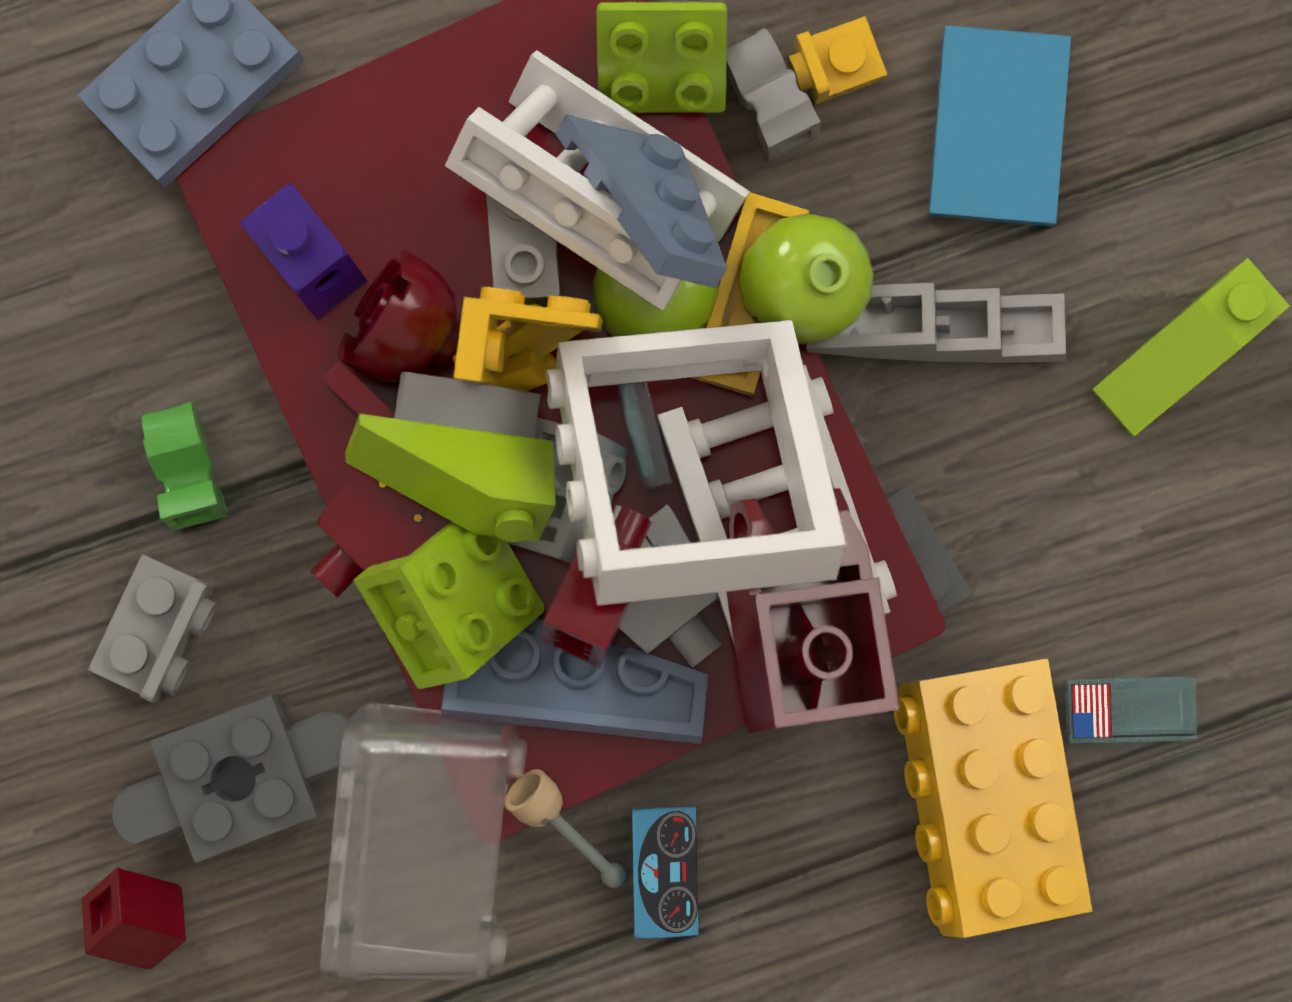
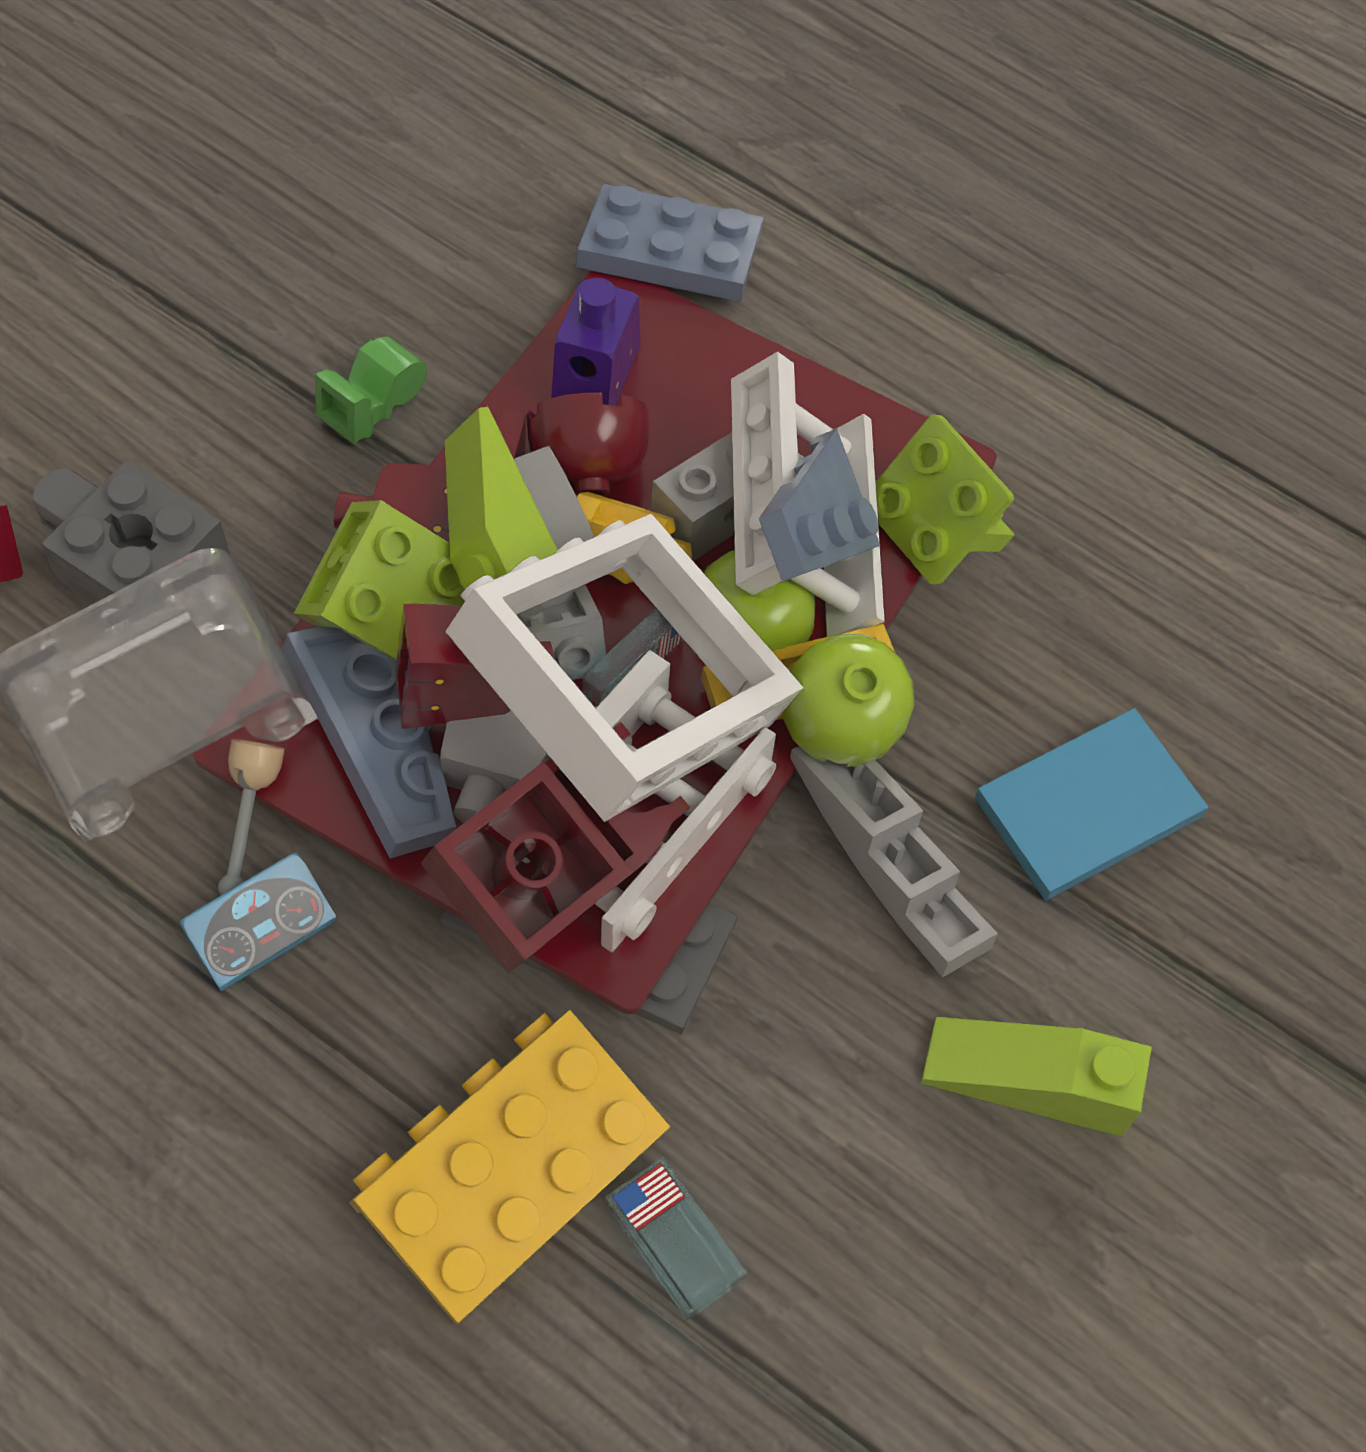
camera: 55 degrees right, 25 degrees down
(153, 629) = (226, 443): light grey bracket -> none
(484, 347) = (626, 456): yellow bracket -> none
(771, 90) = (967, 617): light grey leg -> none
(837, 60) = (1037, 649): yellow bracket -> none

